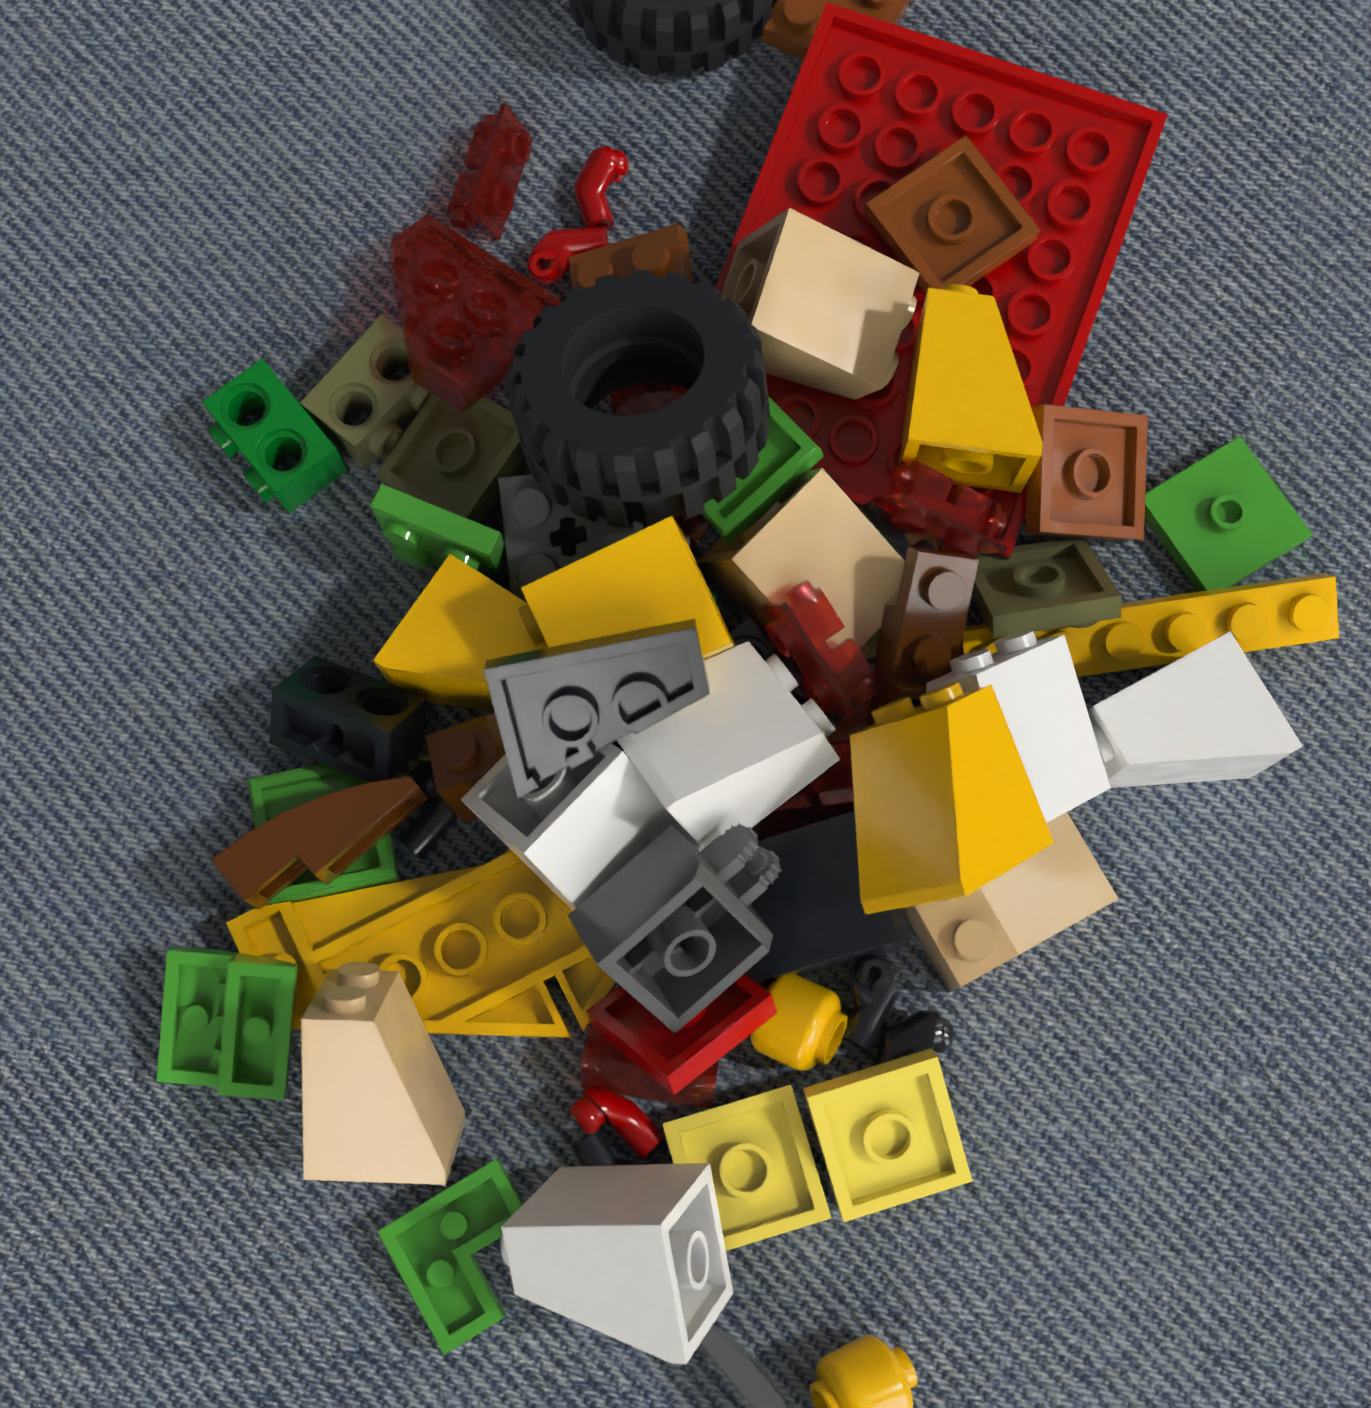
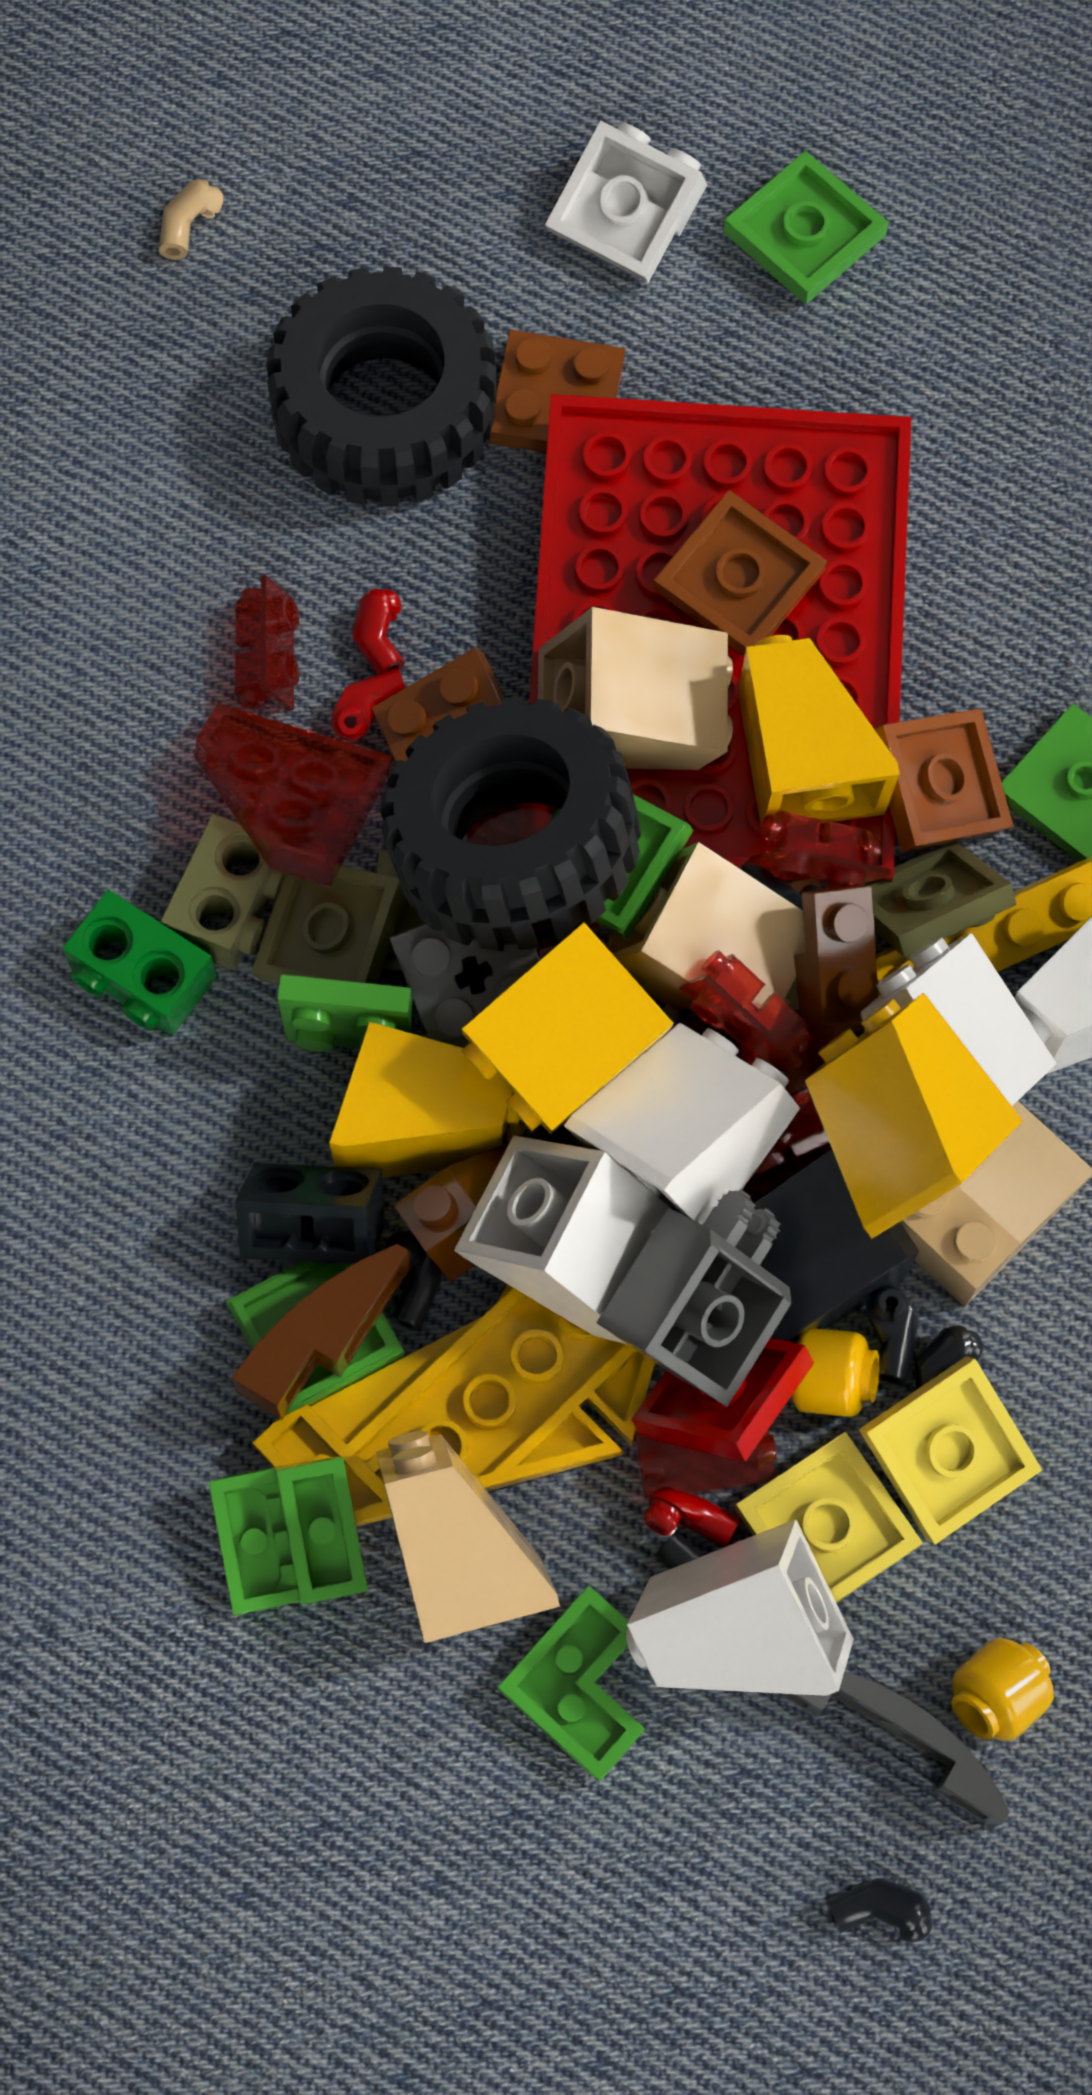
camera: 20 degrees left, 5 degrees down
(585, 694) = (558, 1107): wing -> none

